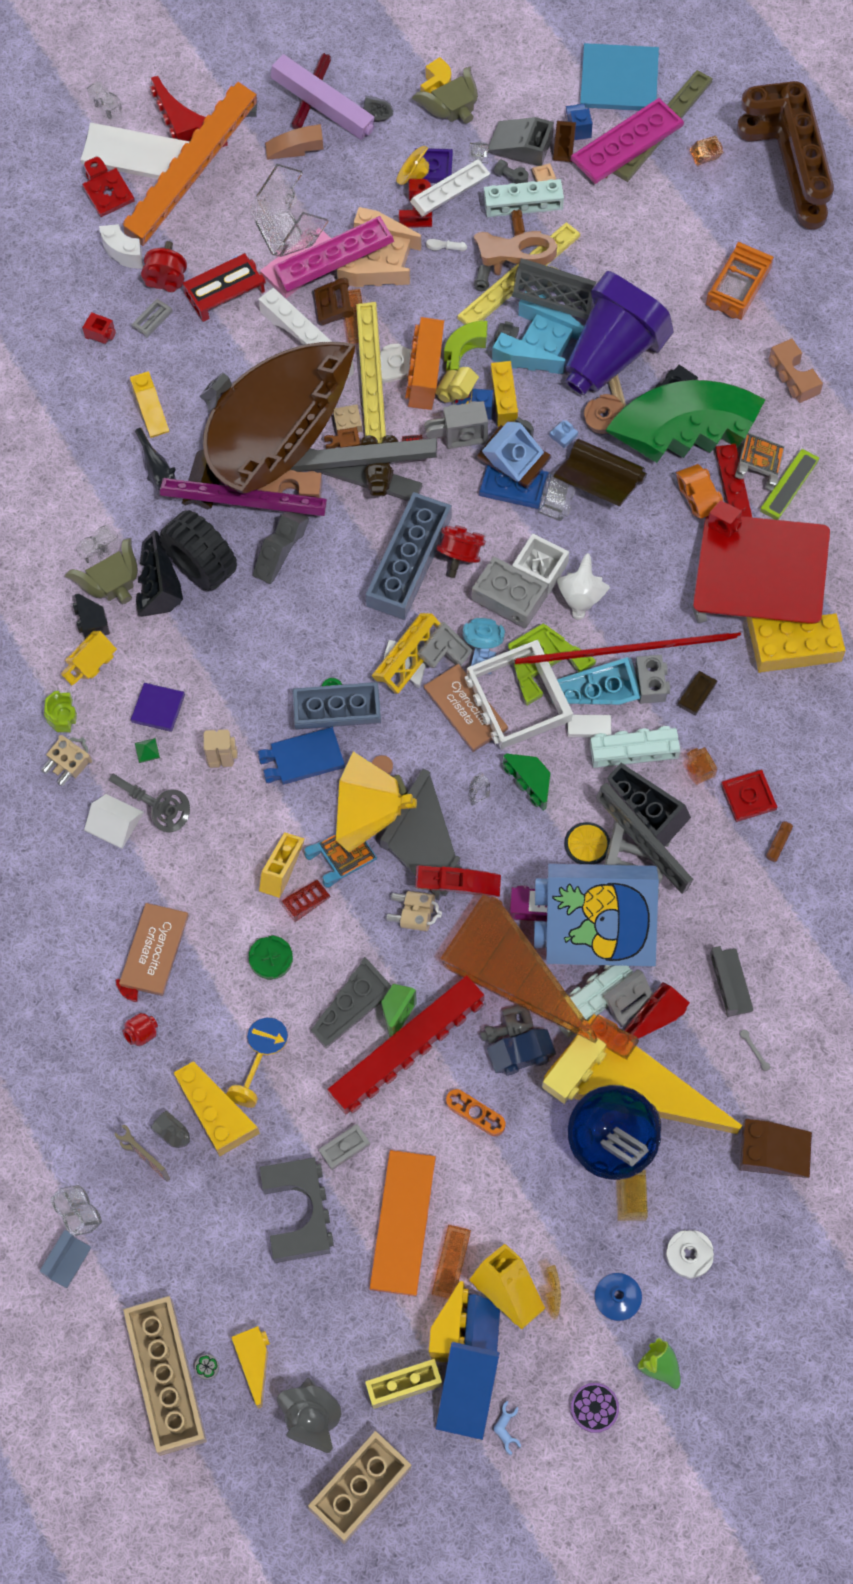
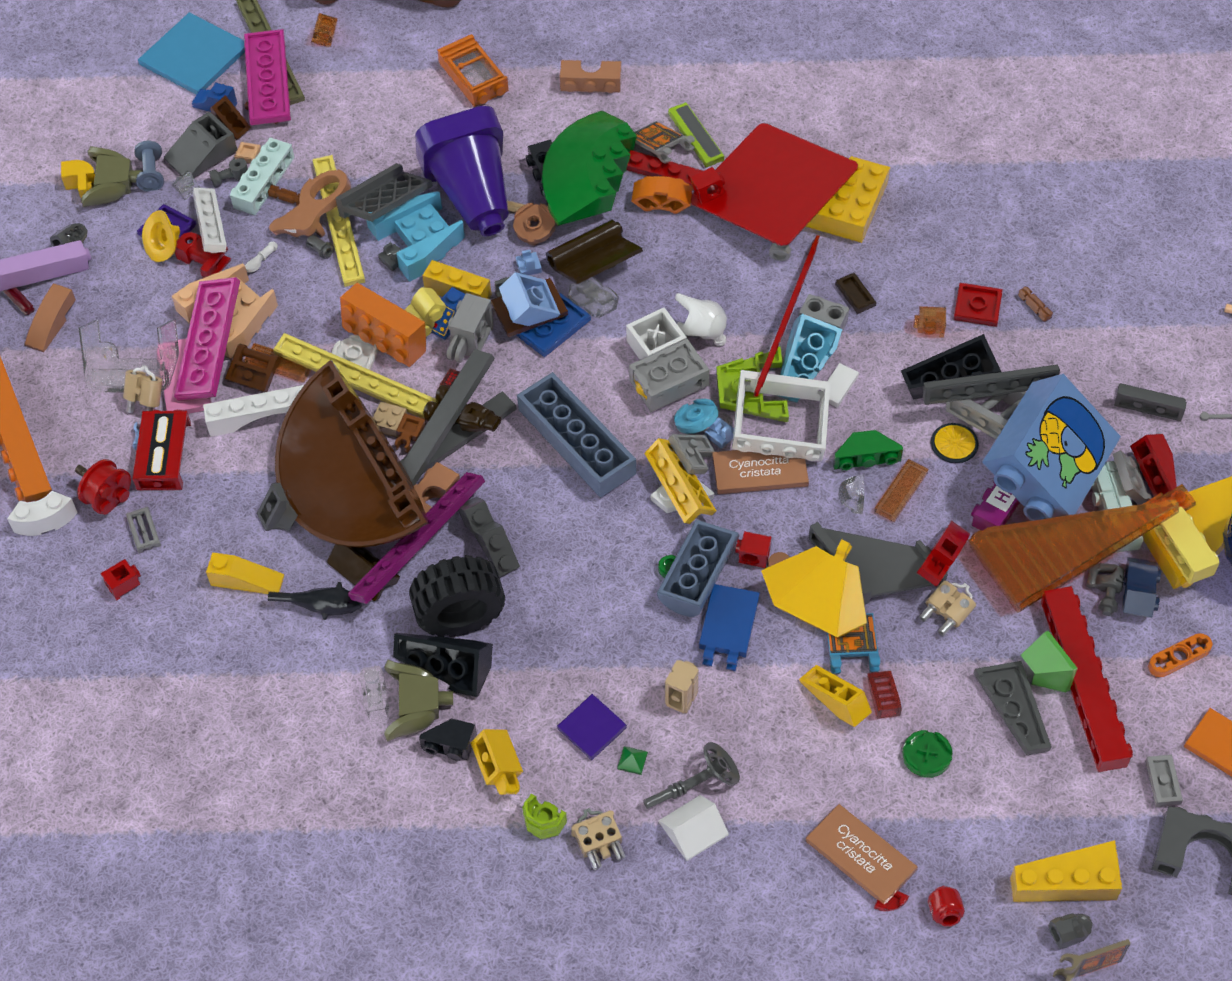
camera: 60 degrees left, 10 degrees down
(262, 241) = (142, 388): none -> tan piece
(265, 1037) = (1014, 796): piece -> none
(381, 739) = (754, 549): none -> red brick
(460, 546) = (598, 387): red wheel -> none
(464, 339) = (377, 280): lime arch -> none
(491, 109) = (148, 153): none -> sand blue hose
(511, 824) = (901, 490): none -> clear orange tile
(634, 747) = (883, 360): light aqua brick -> none

